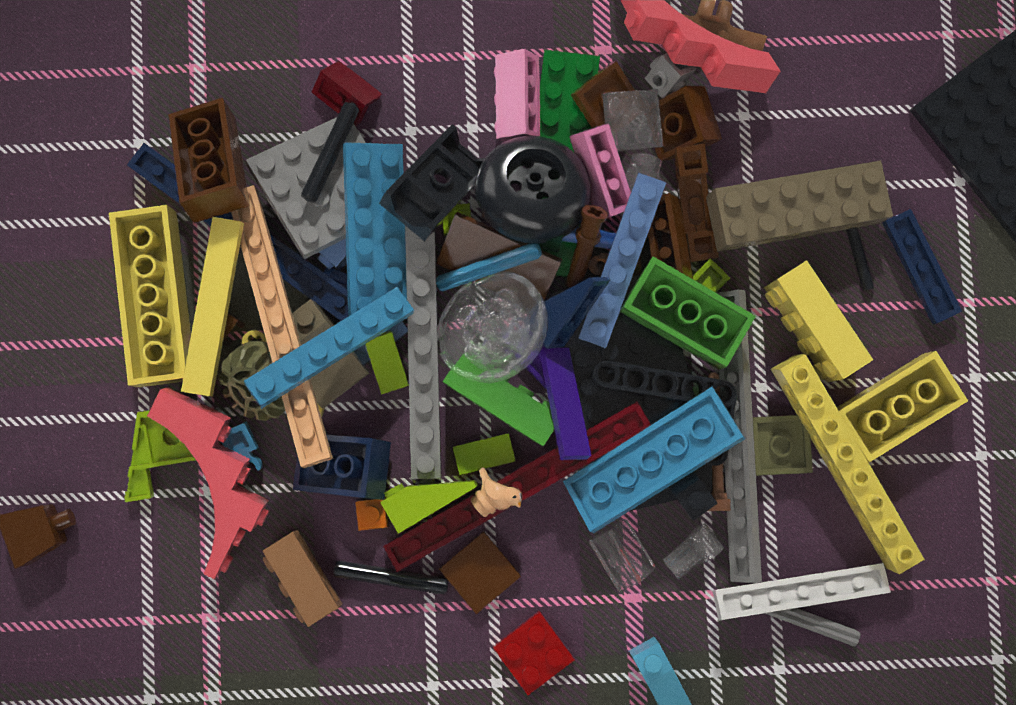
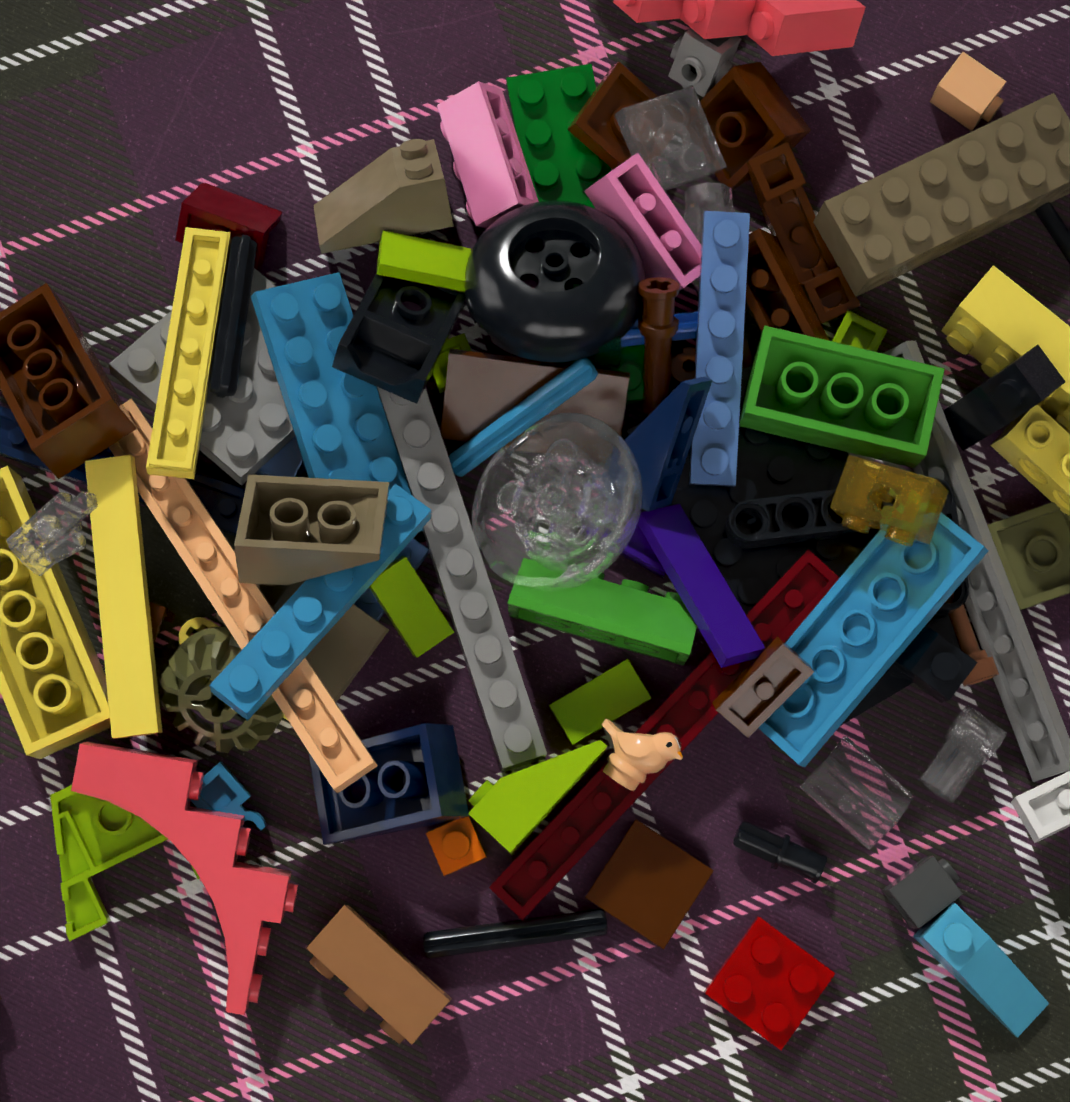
camera: 15 degrees left, 5 degrees down
(179, 255) = (53, 532): none -> clear rock
(295, 168) = (189, 354): none -> light yellow tile
(333, 299) = (307, 527): none -> dark tan slope
(446, 106) = (394, 193): none -> dark tan slope
(455, 152) = (422, 260): none -> lime tile
(564, 577) = (780, 851): none -> black axle
(582, 478) = (762, 687): none -> reddish brown plate
(643, 627) = (923, 891): none -> dark grey brick
(684, 375) = (869, 483): none -> clear yellow brick
(787, 344) = (1002, 397): none -> black slope
(829, 143) = (969, 92): none -> light nougat brick

